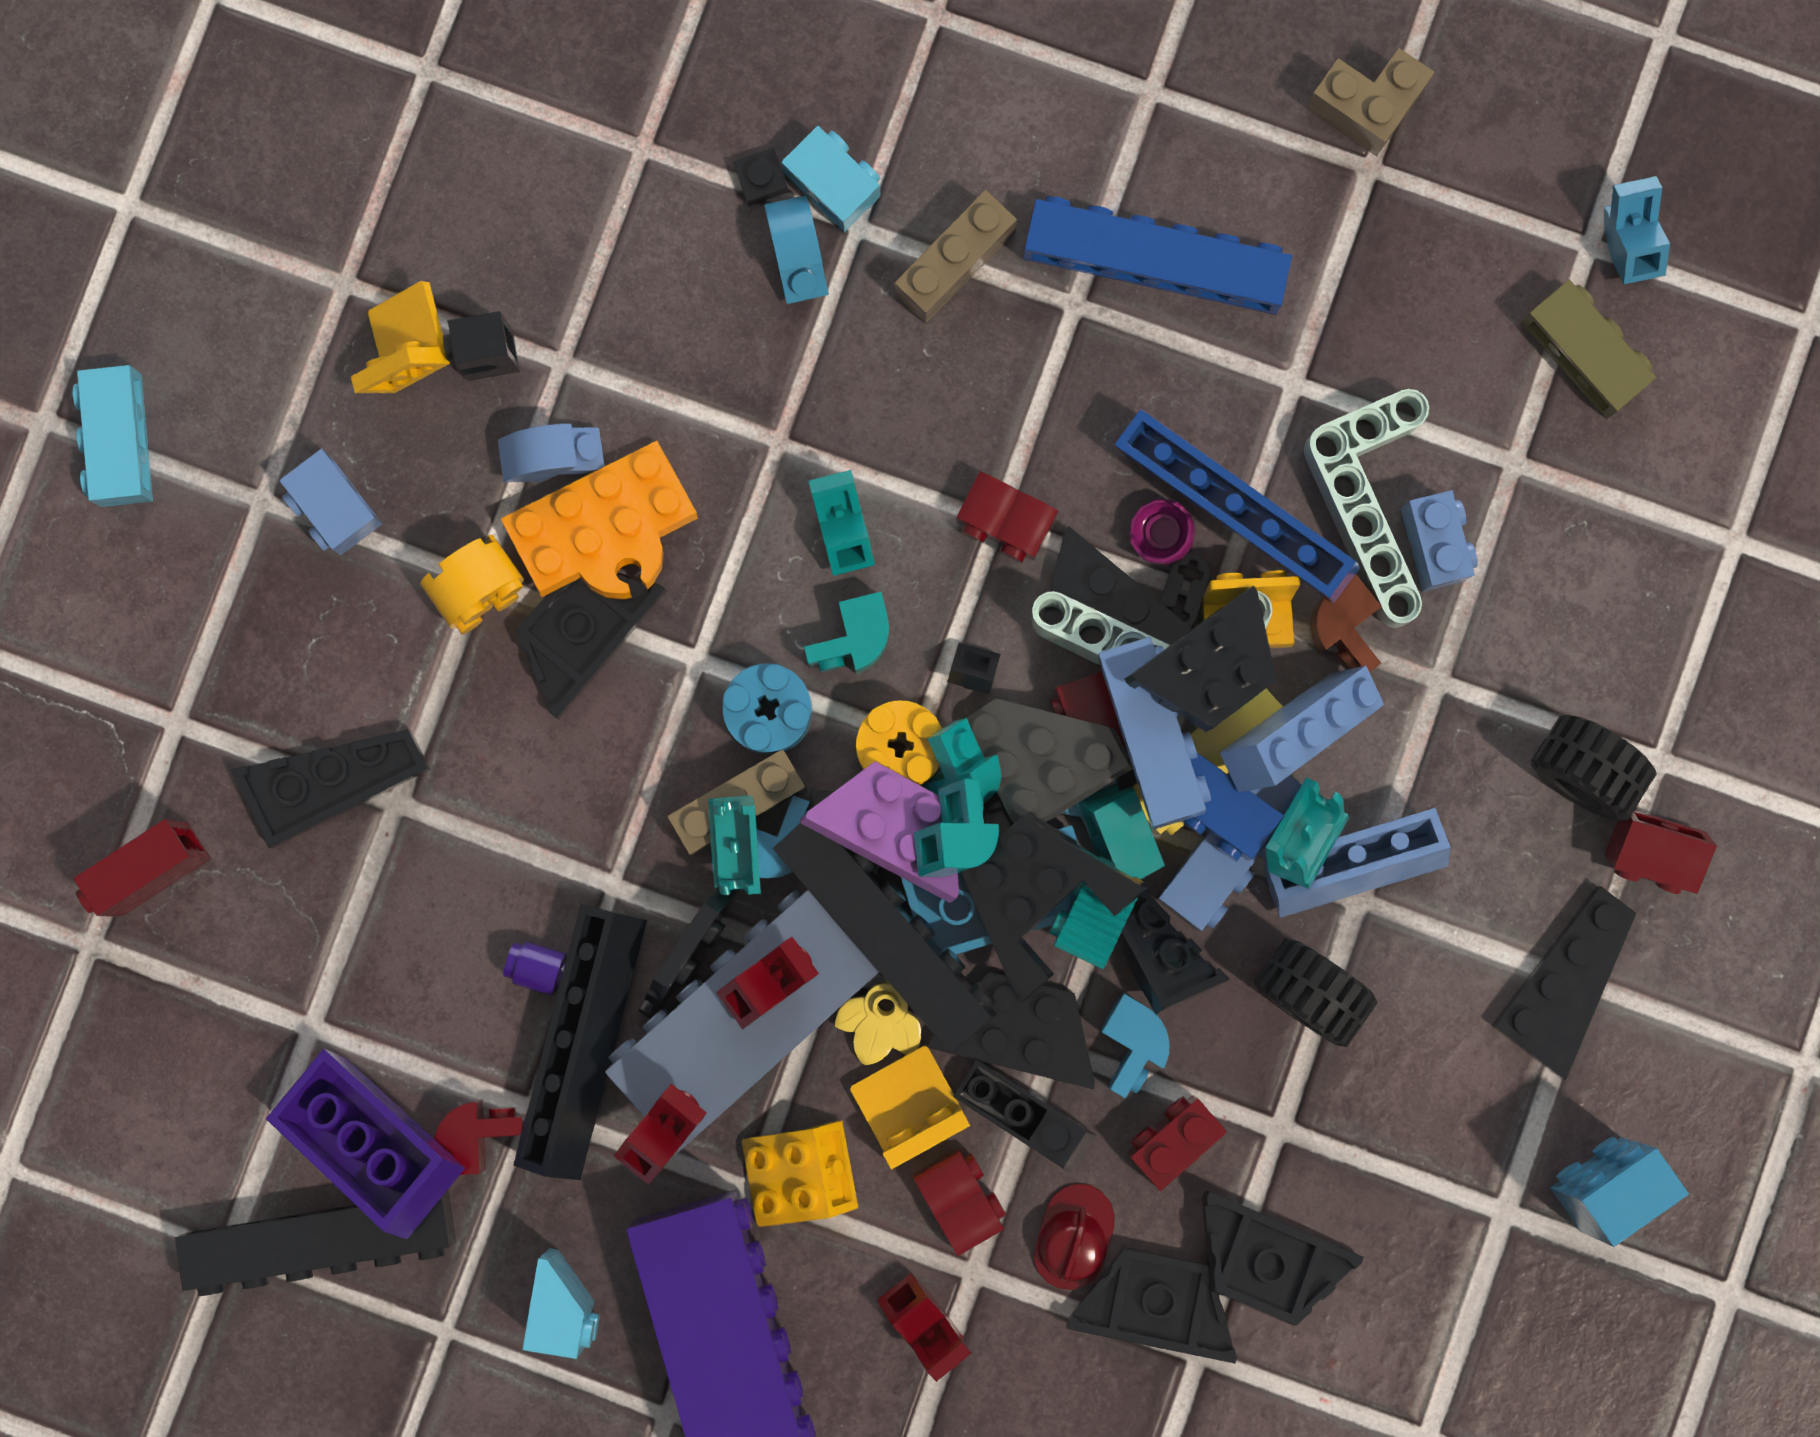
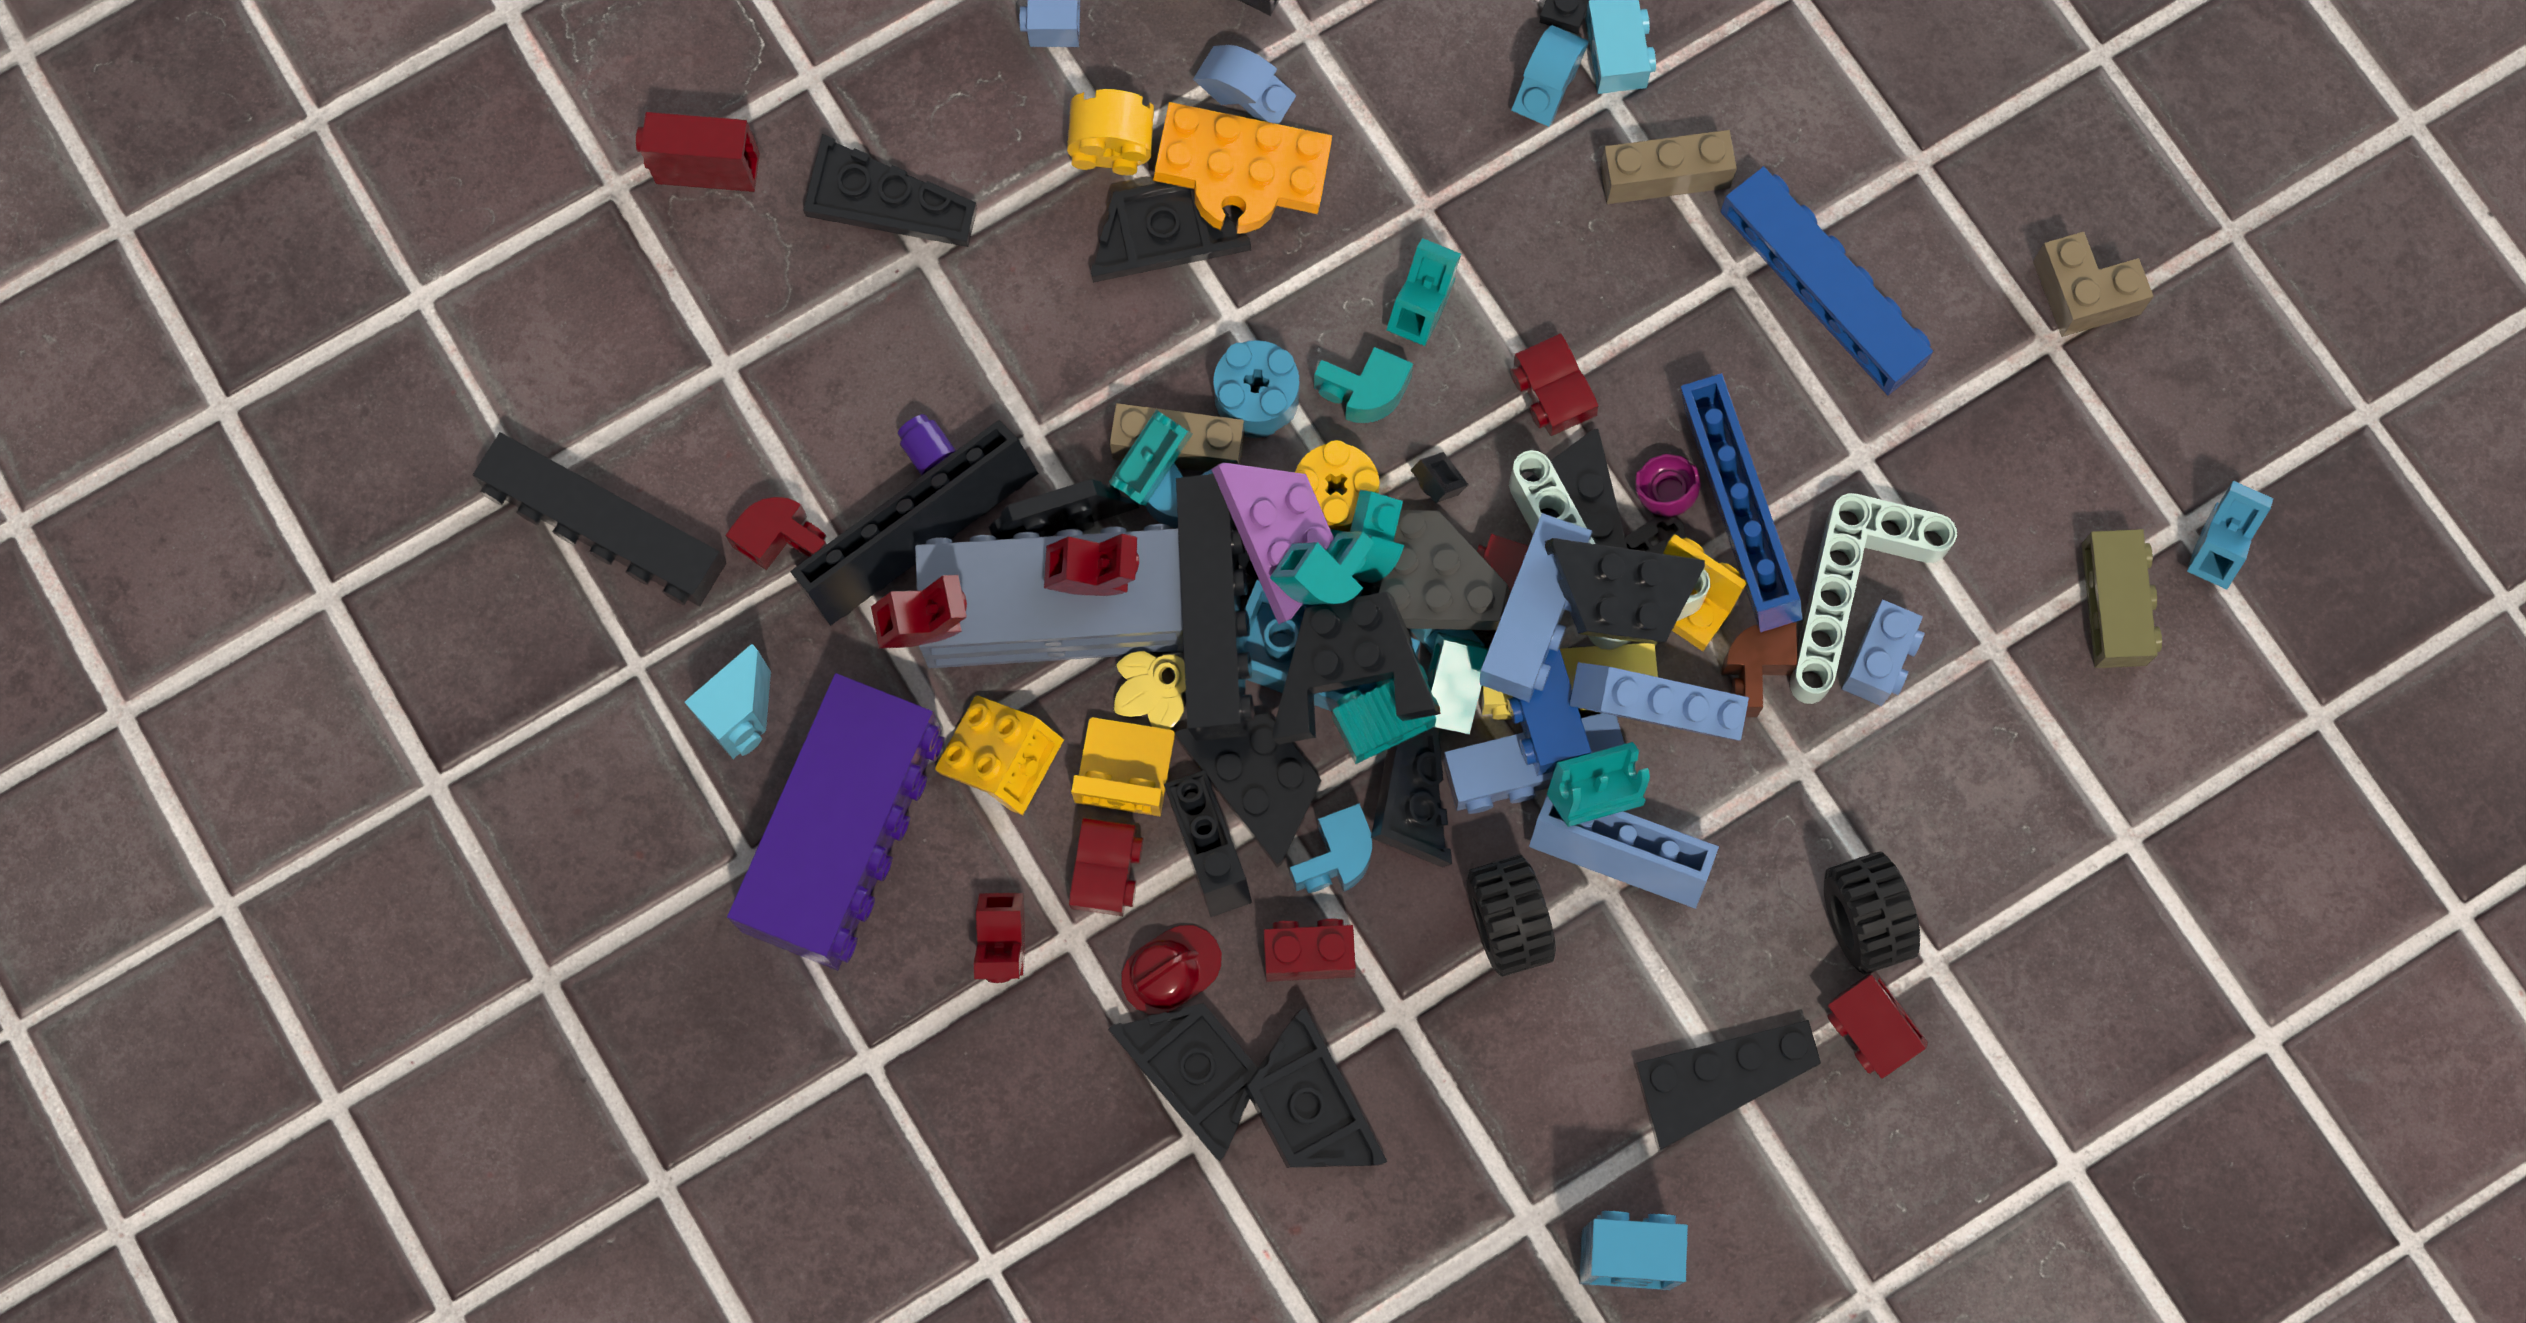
camera: 40 degrees right, 10 degrees down
(365, 1144) = (694, 468): dark purple brick -> none

